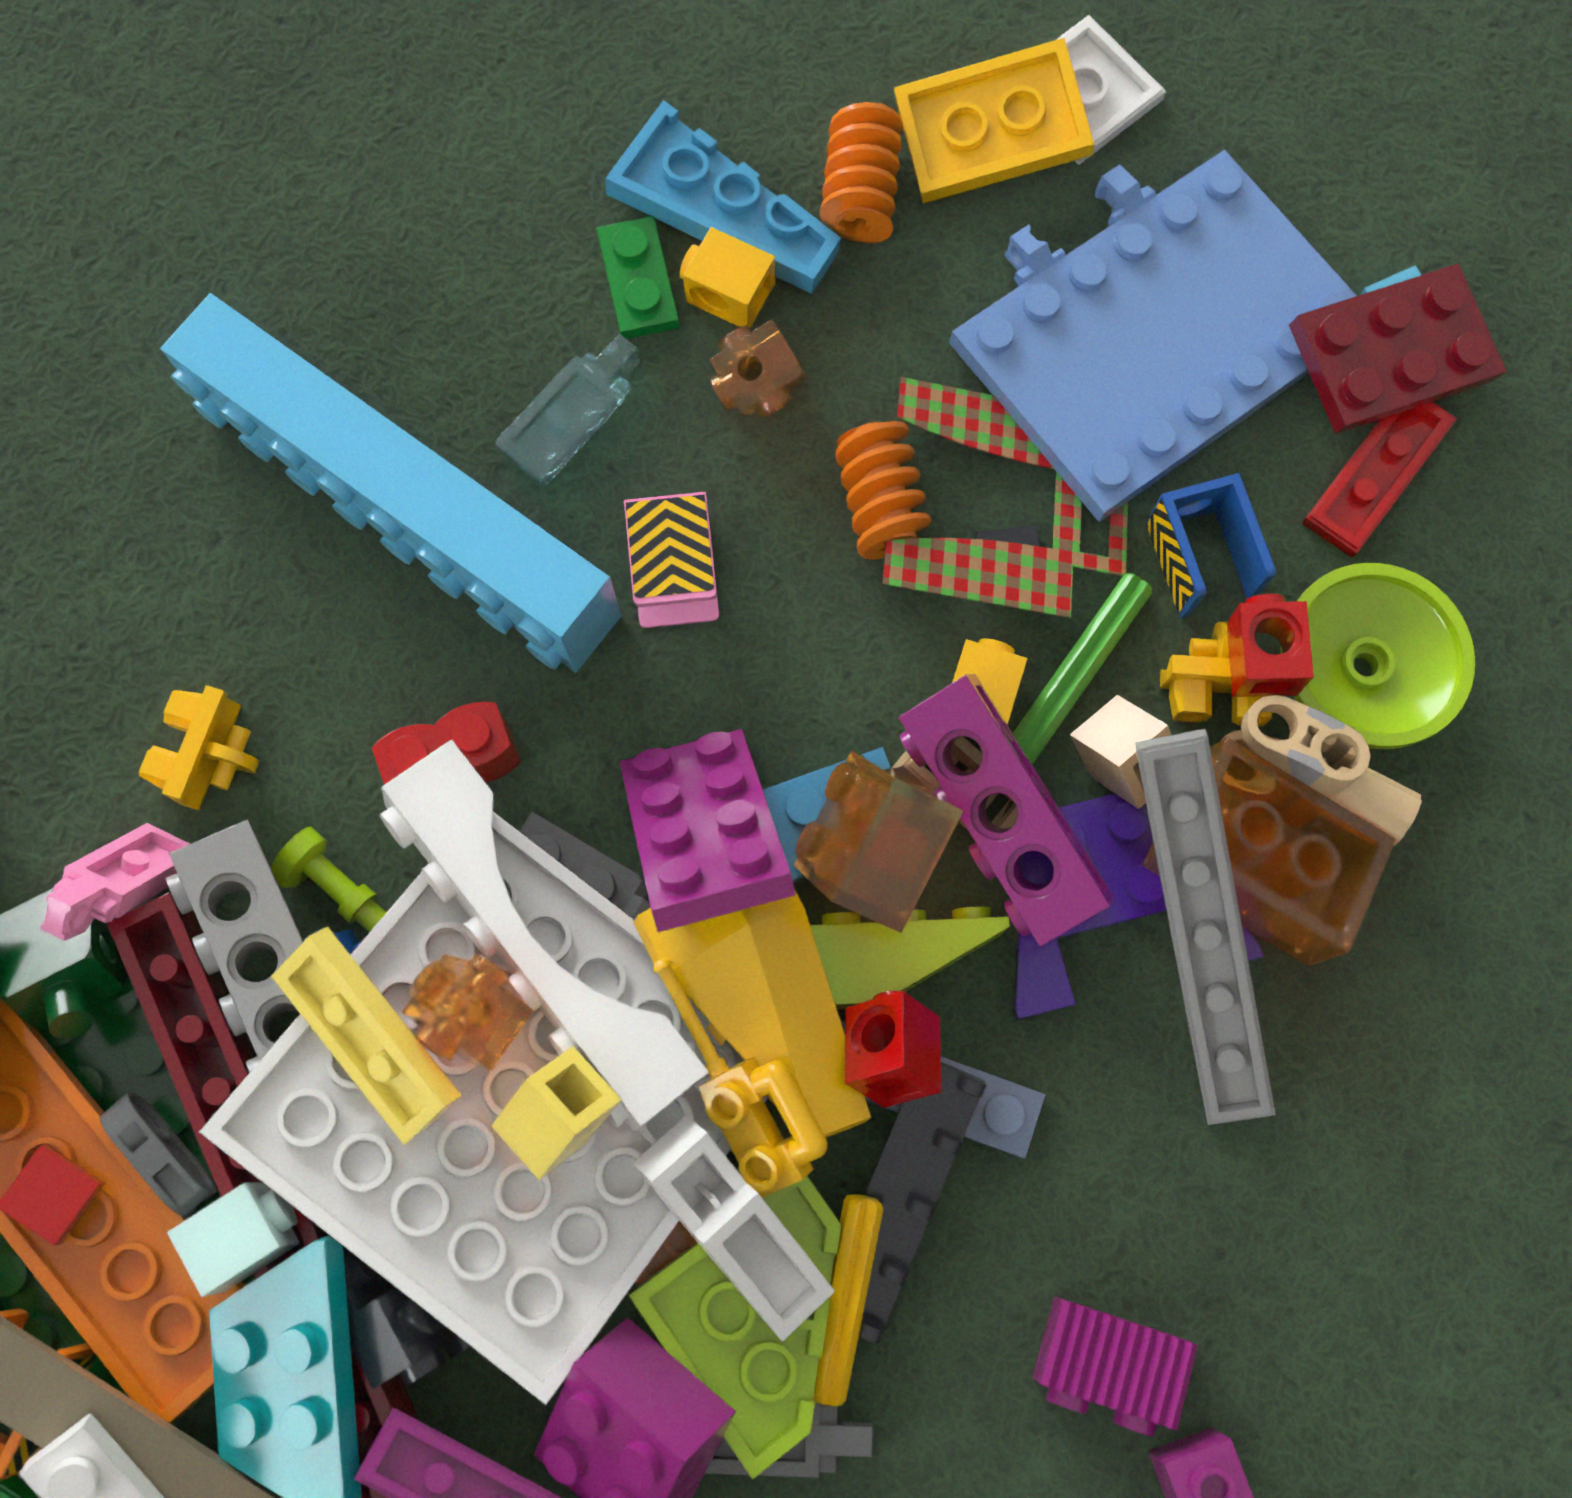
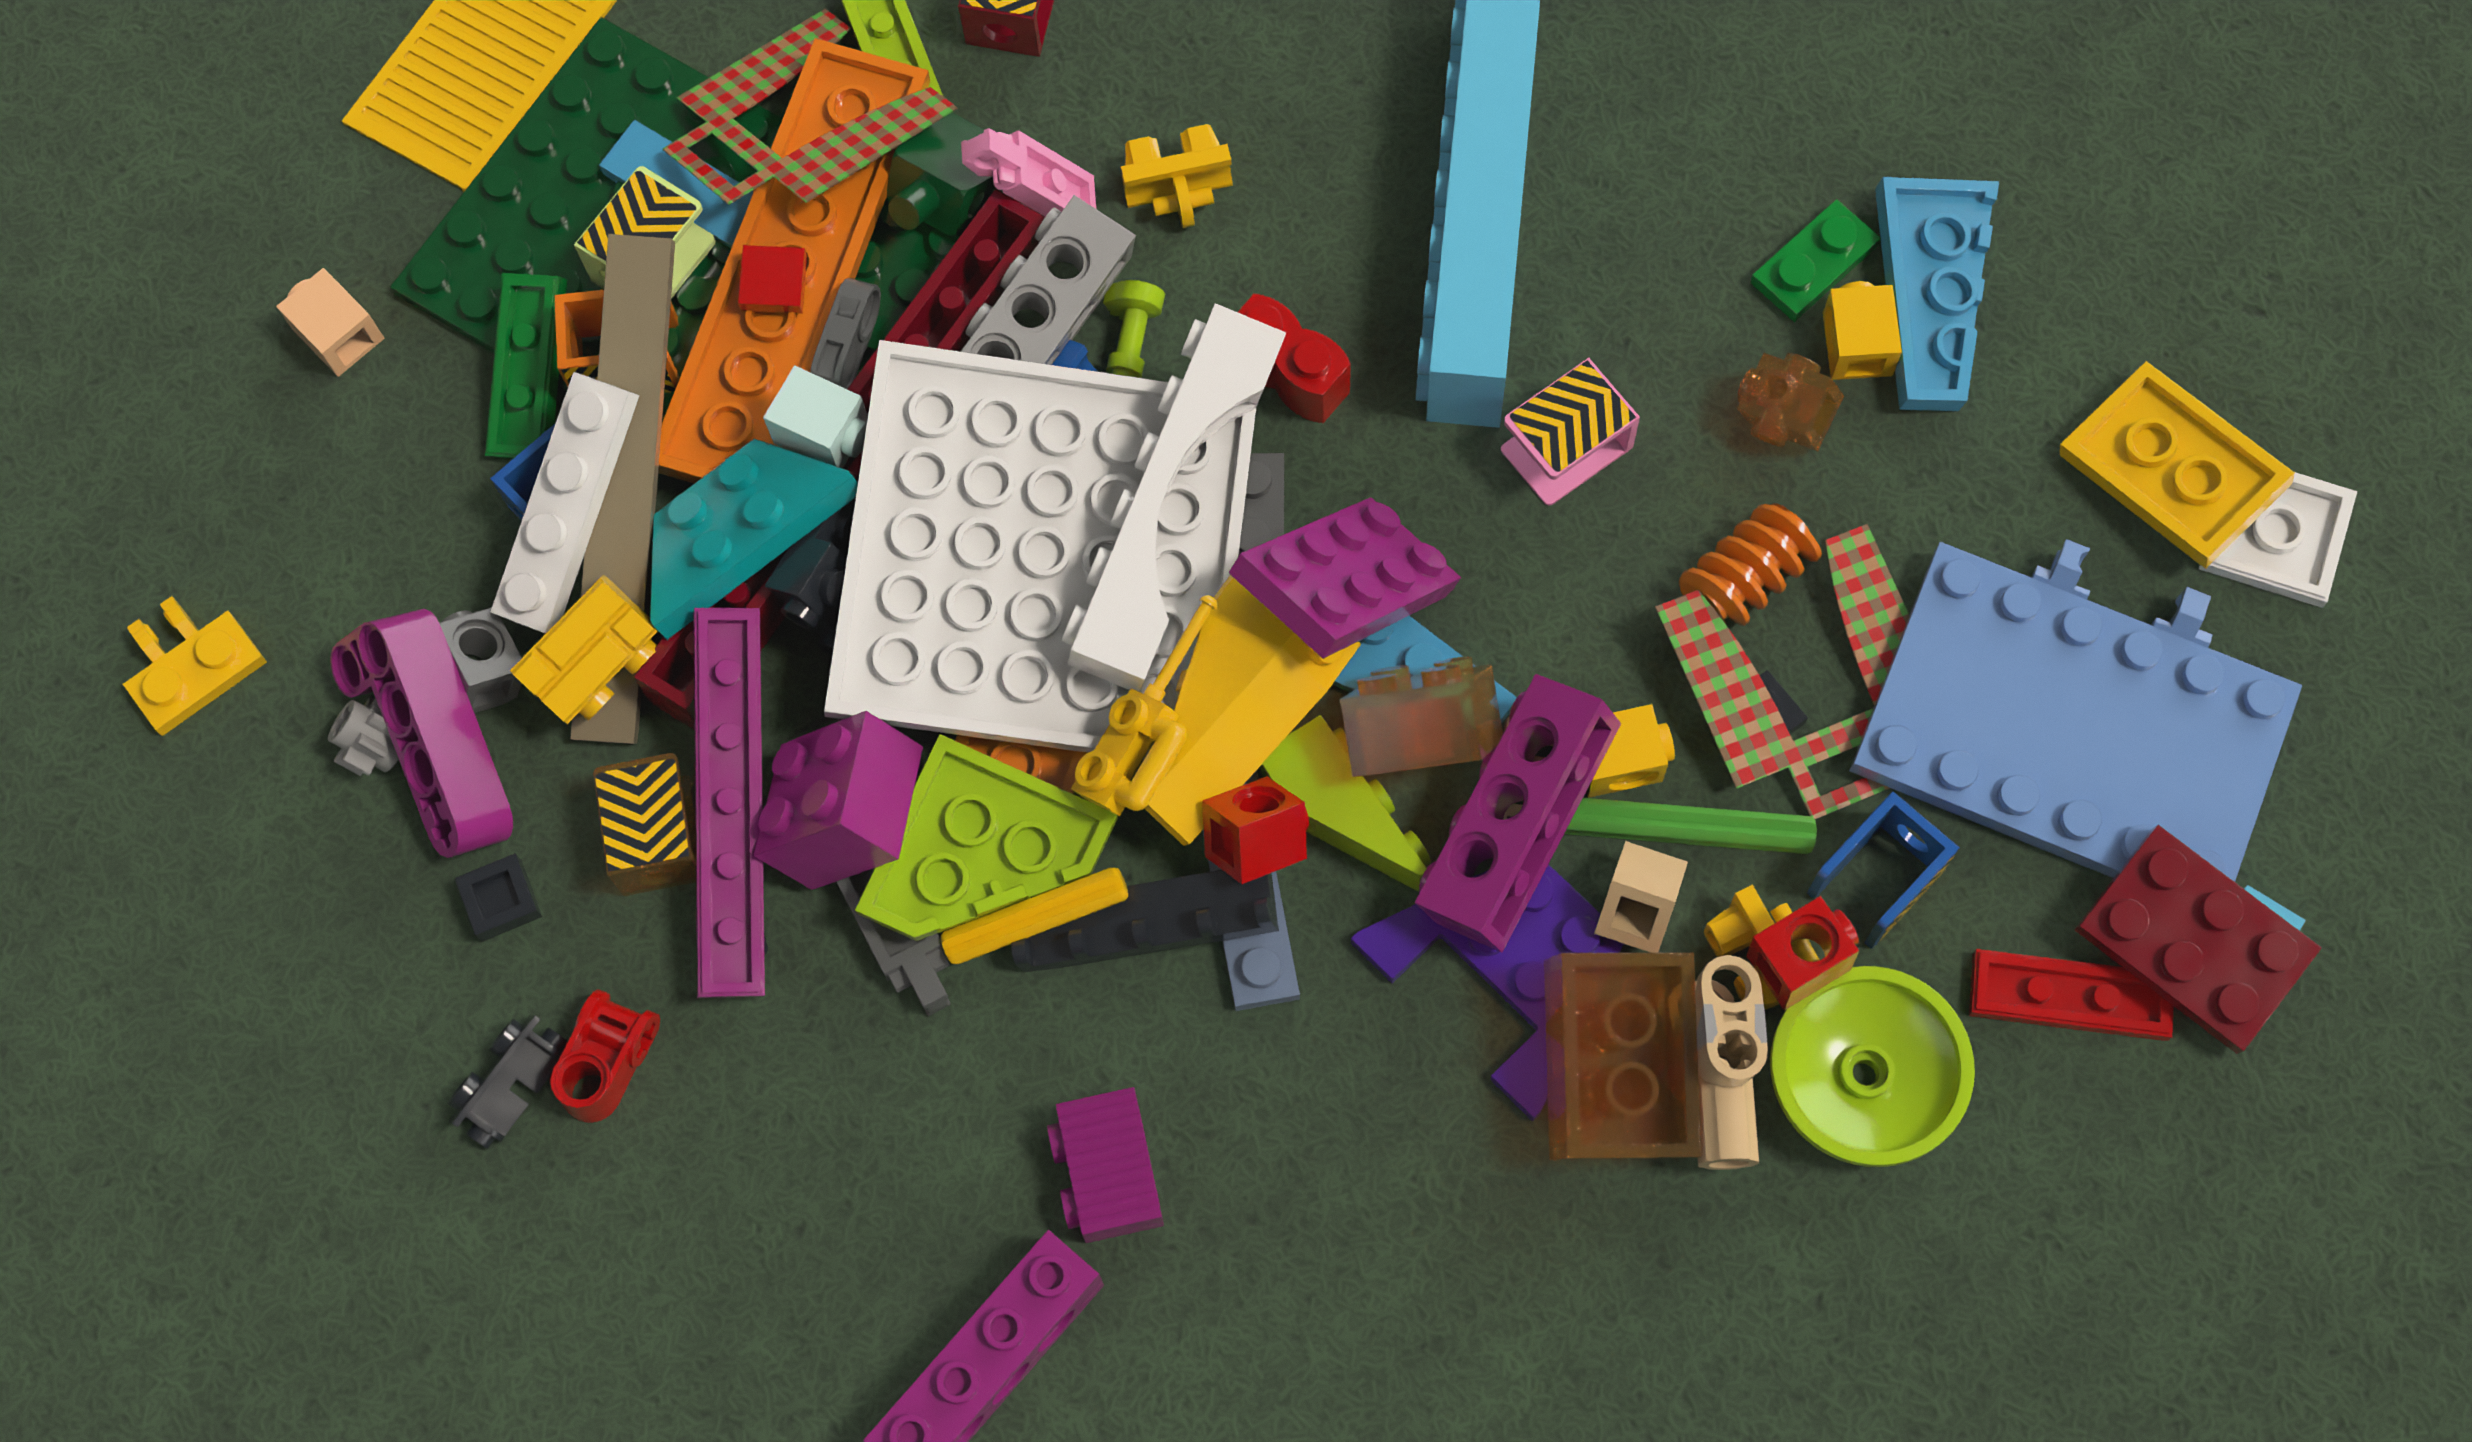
camera: 65 degrees right, 5 degrees down
(365, 1035) = (1019, 411): light yellow plate -> none
(465, 1010) = (1087, 491): clear orange brick -> none
(555, 1112) = (1044, 581): light yellow brick -> none
(569, 410) = (1653, 277): clear light blue hinge -> none
(734, 1226) = (1036, 779): white slope -> none
(862, 172) = (2040, 376): orange piece -> none
(1205, 925) = (1511, 1023): light grey tile -> none

